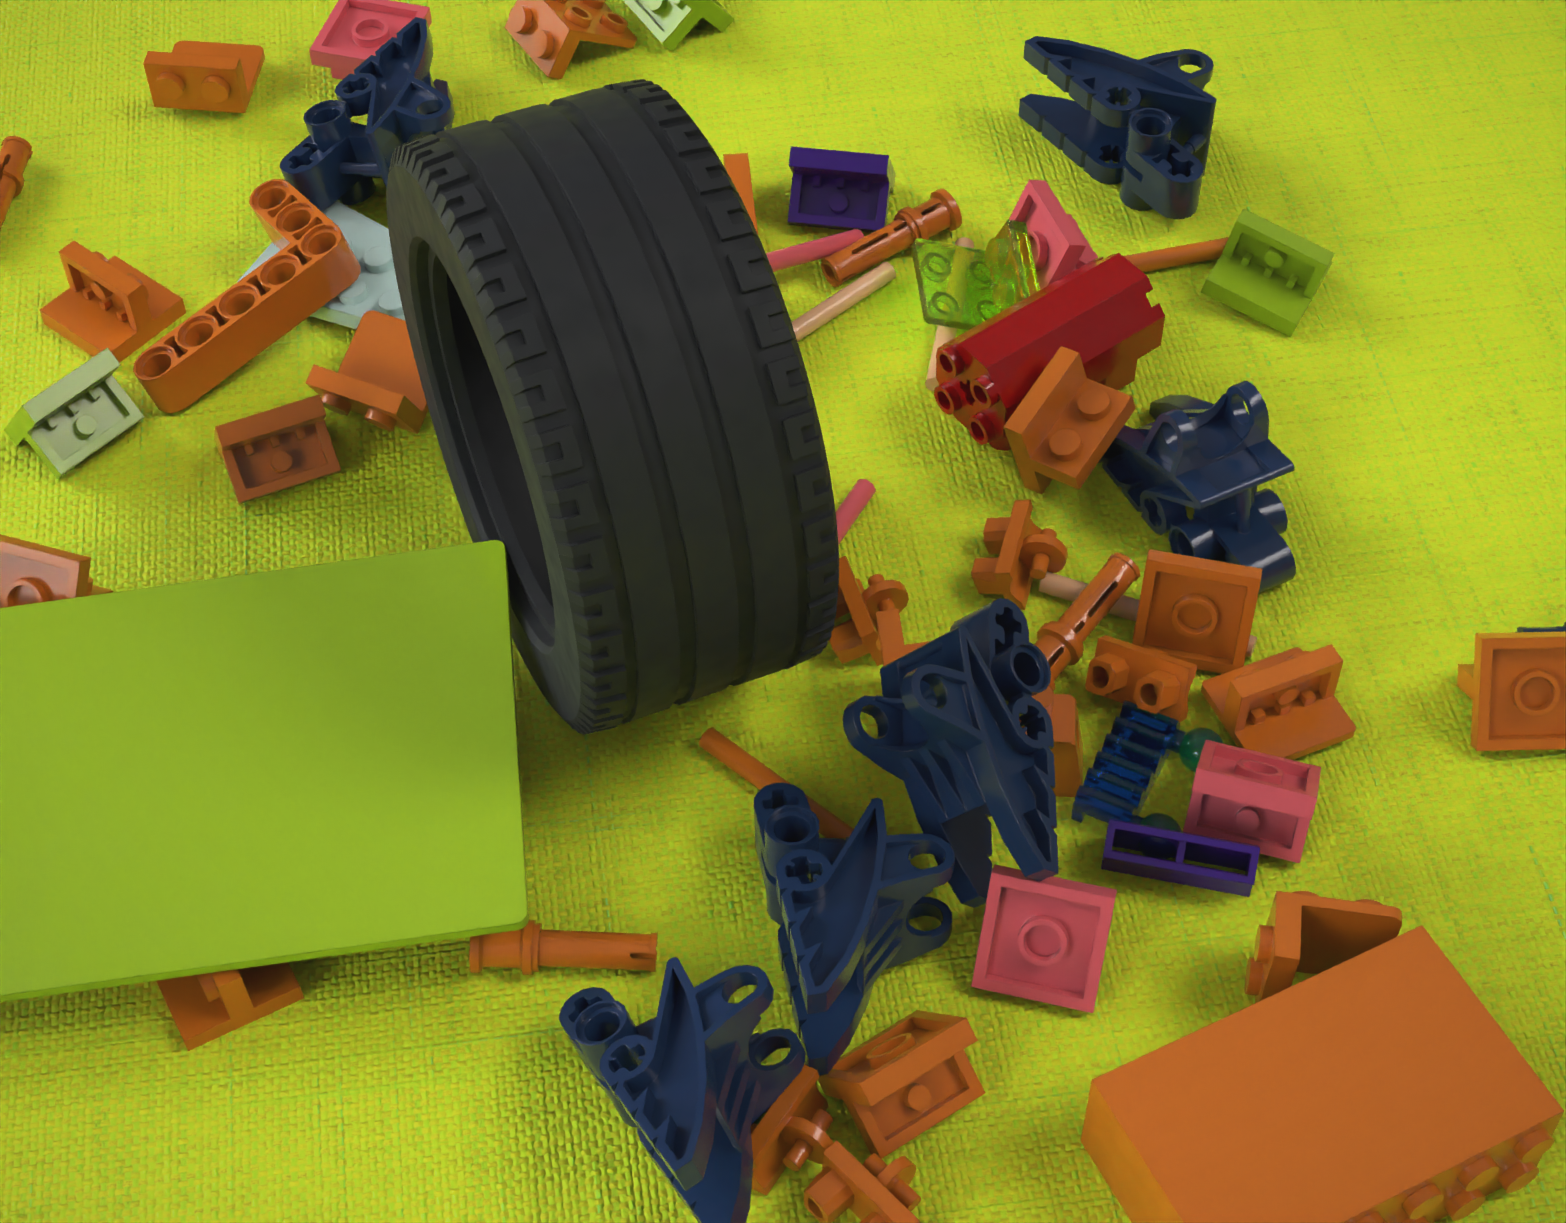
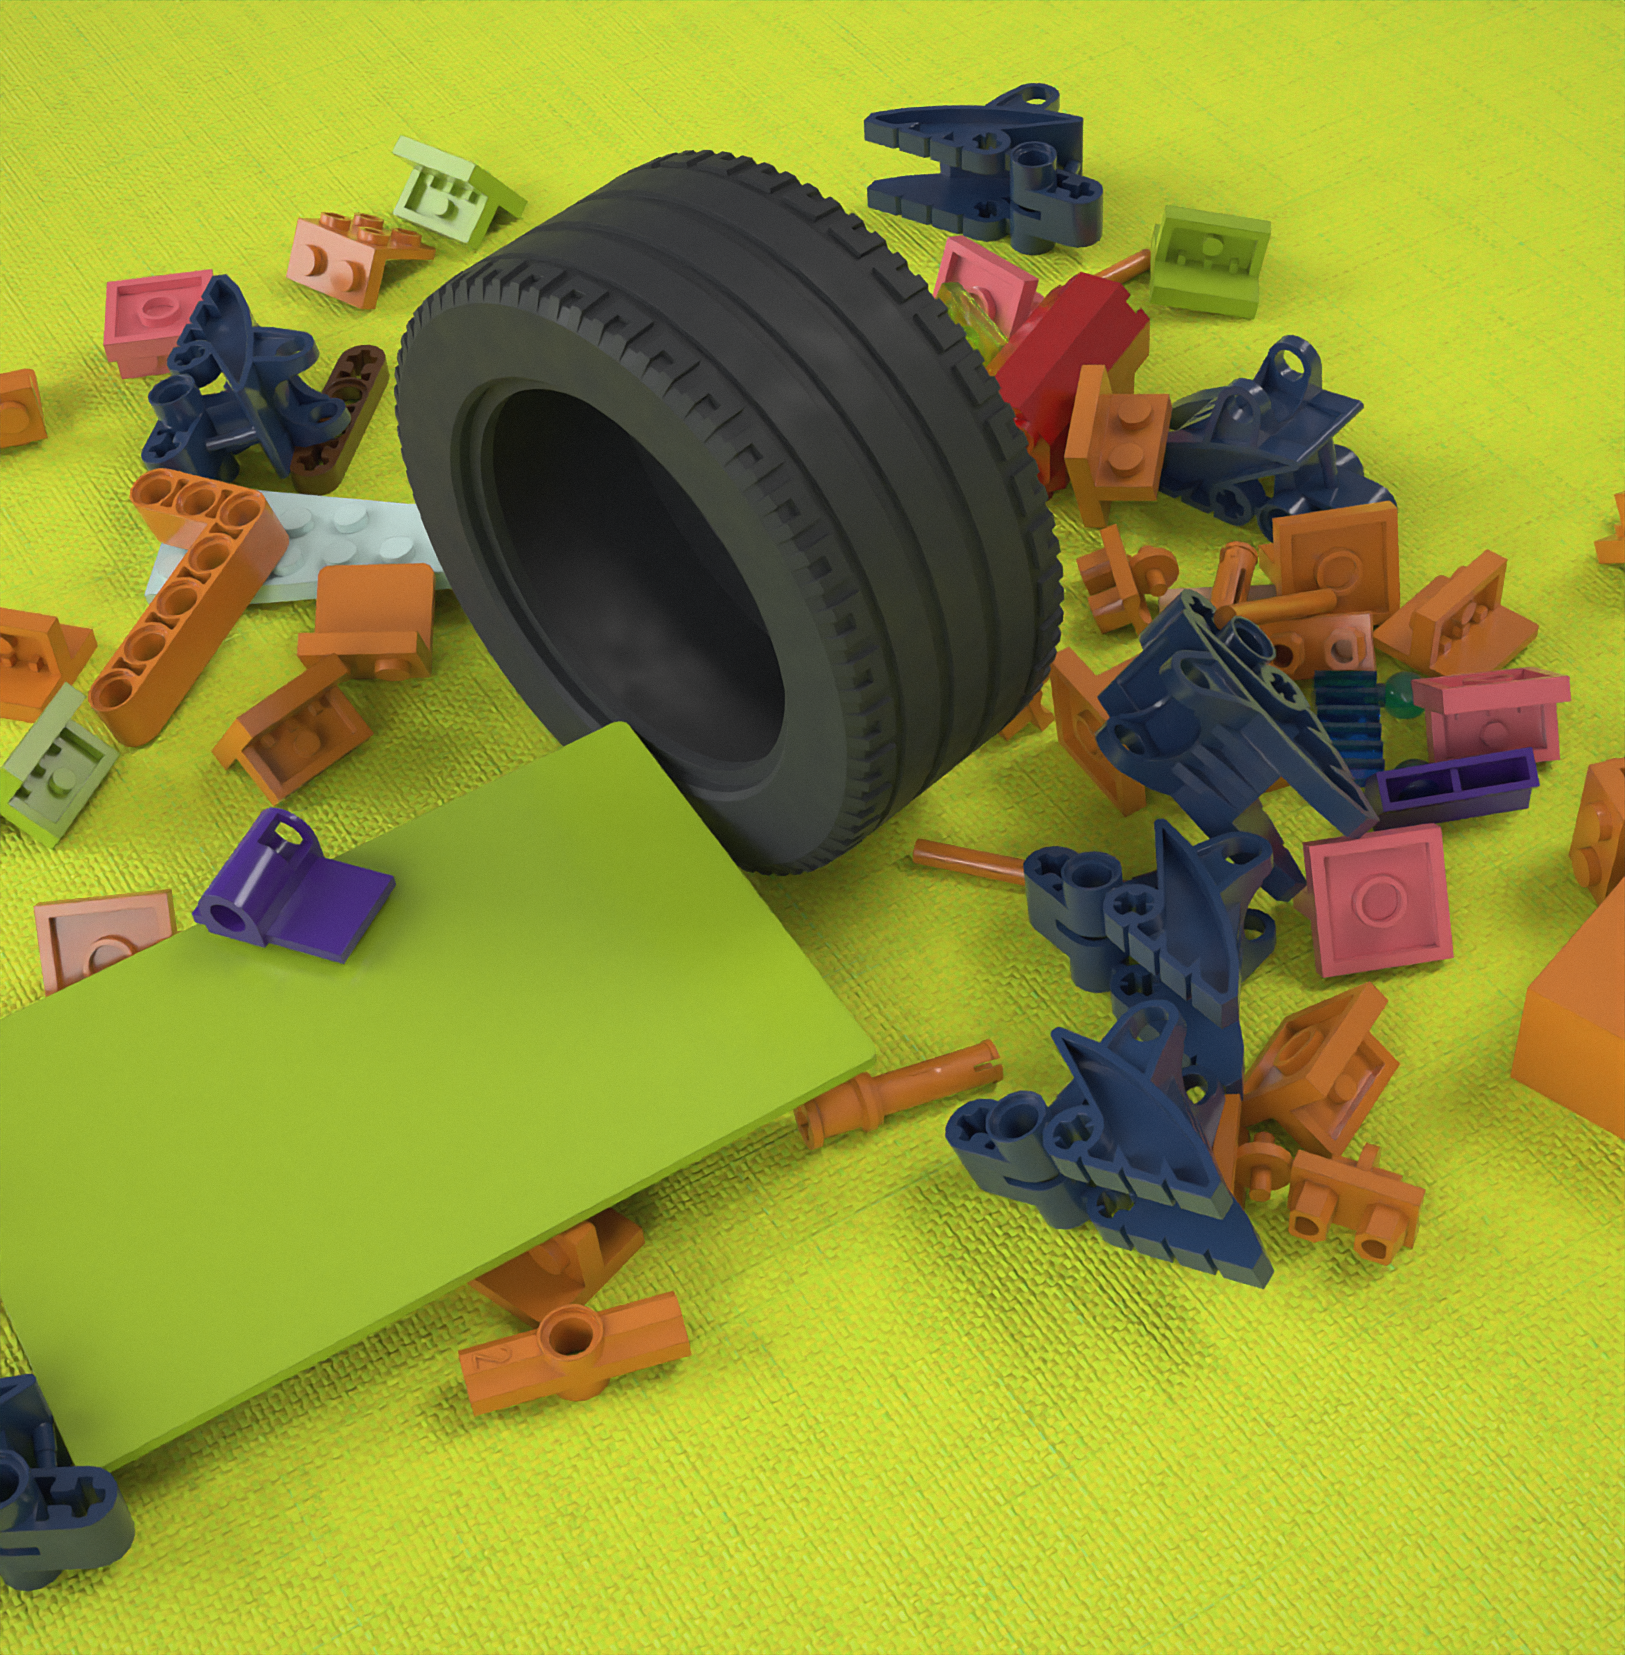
camera: 20 degrees left, 5 degrees down
(152, 1066) = (537, 1363): none -> orange piece
(166, 598) = (291, 893): none -> dark purple piece
(1099, 637) = (1278, 608): none -> orange bar

